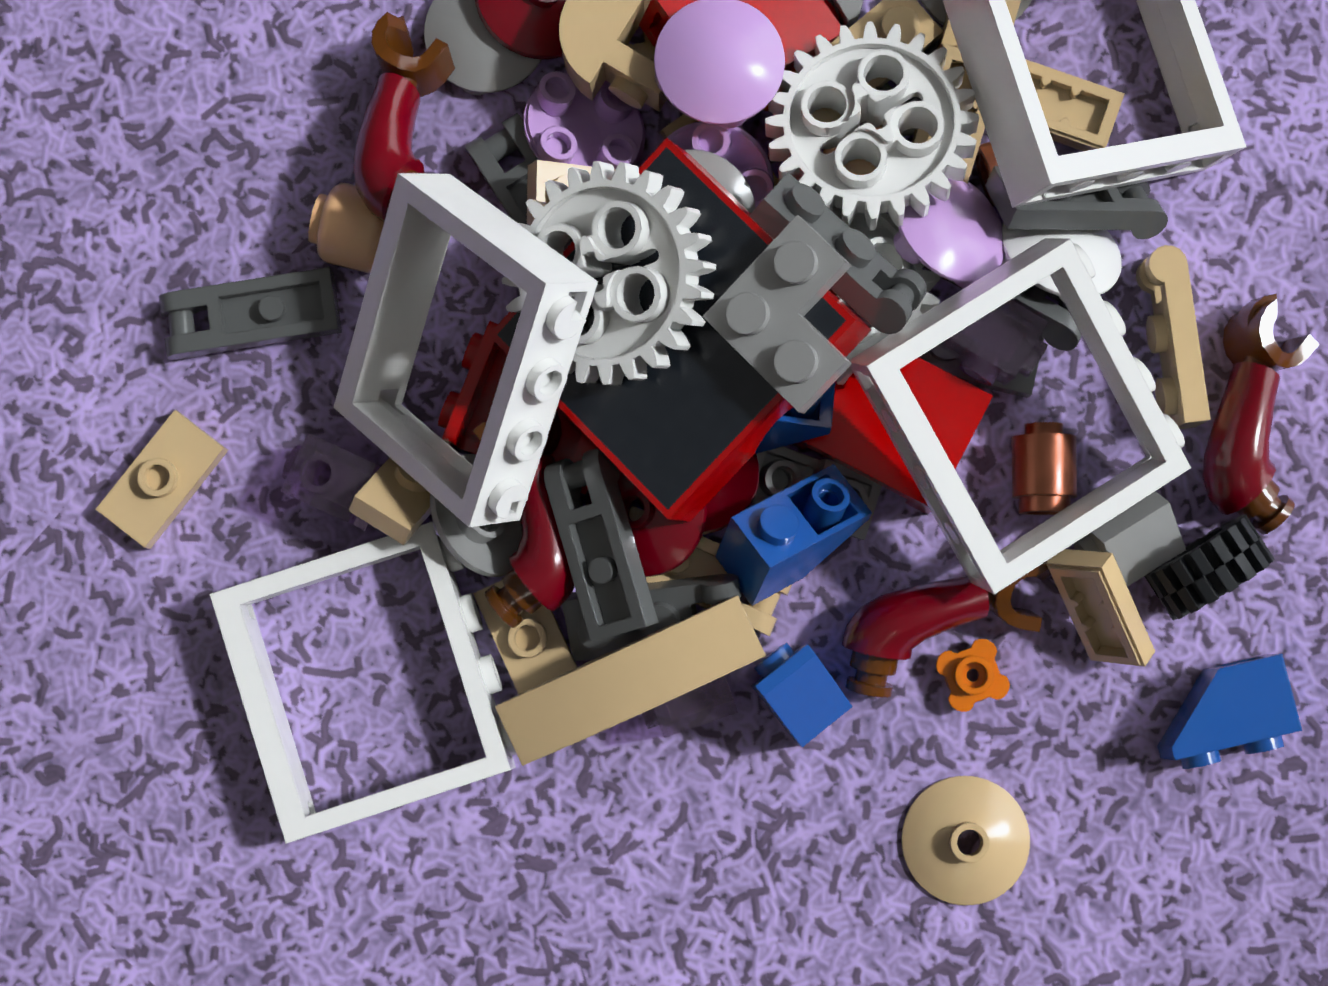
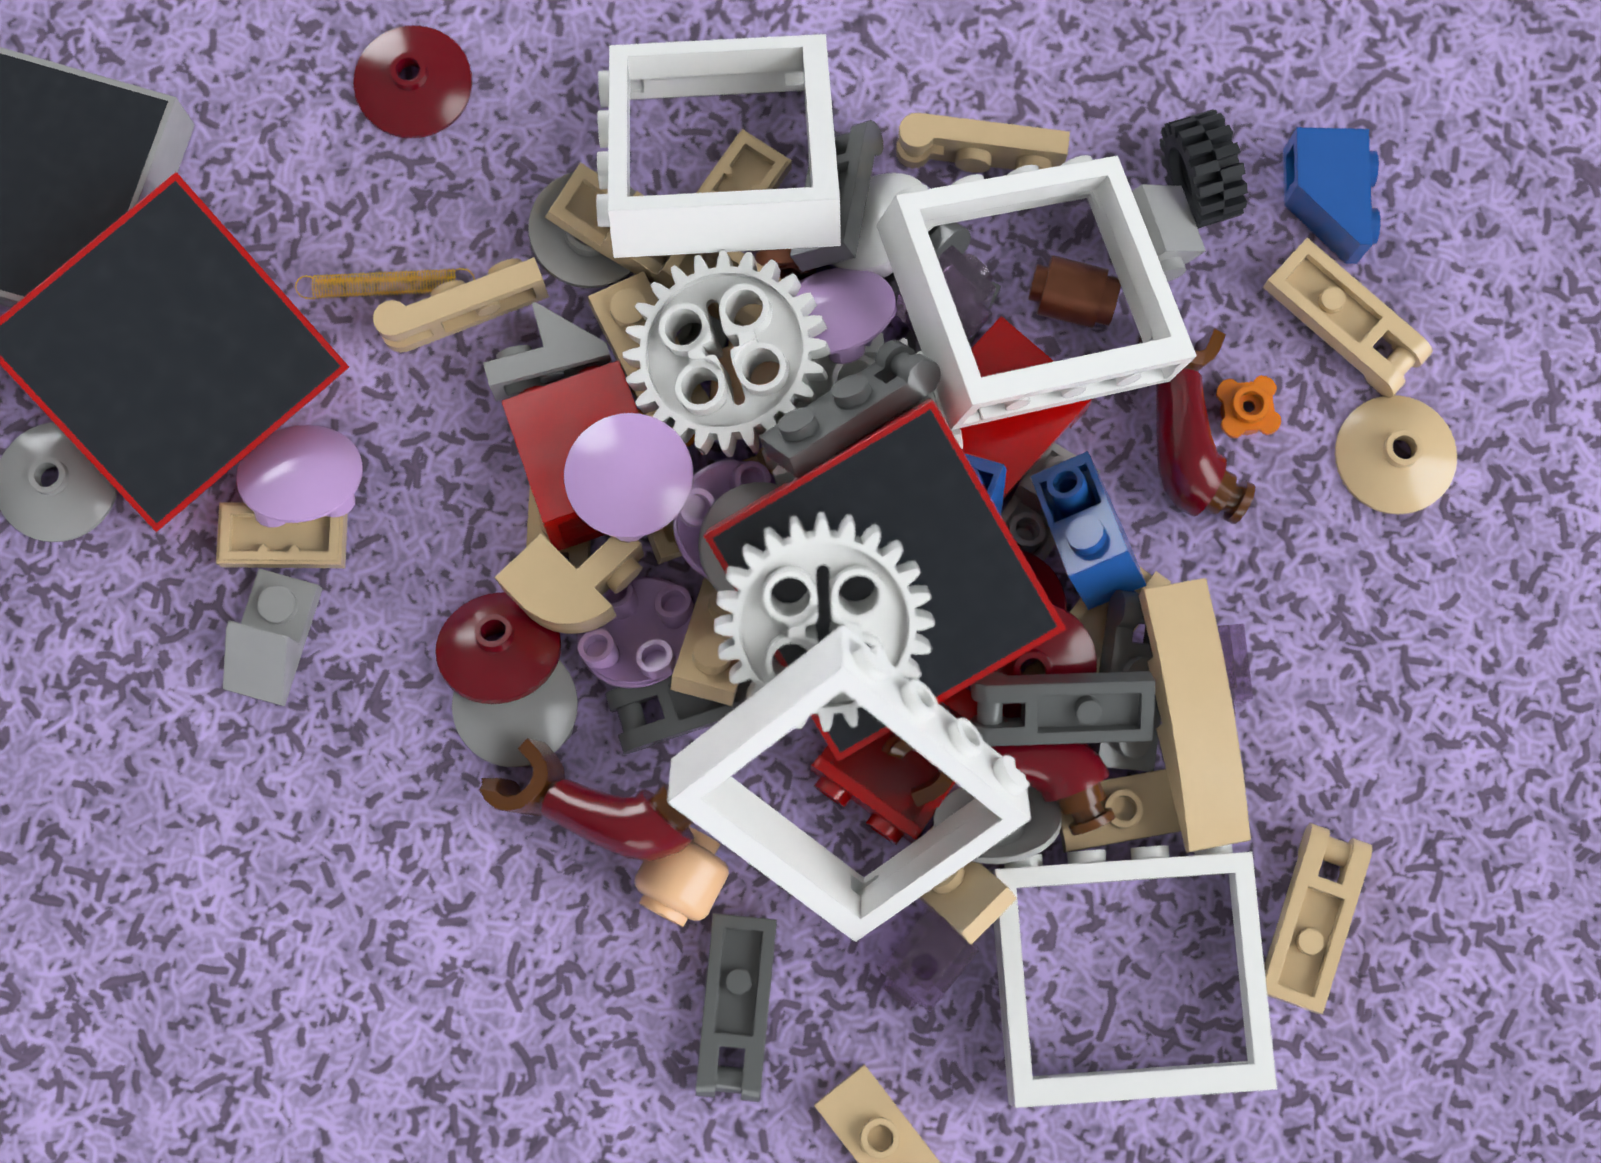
camera: 85 degrees left, 5 degrees down
(465, 852) = (1315, 919): none -> tan plate
(766, 313) = (906, 481): light grey plate -> none
(799, 692) = (1236, 562): blue slope -> none
(1096, 756) = (1348, 317): none -> tan plate
(1101, 607) = (1221, 271): tan plate -> none
(1237, 451) = (1096, 116): piece -> none

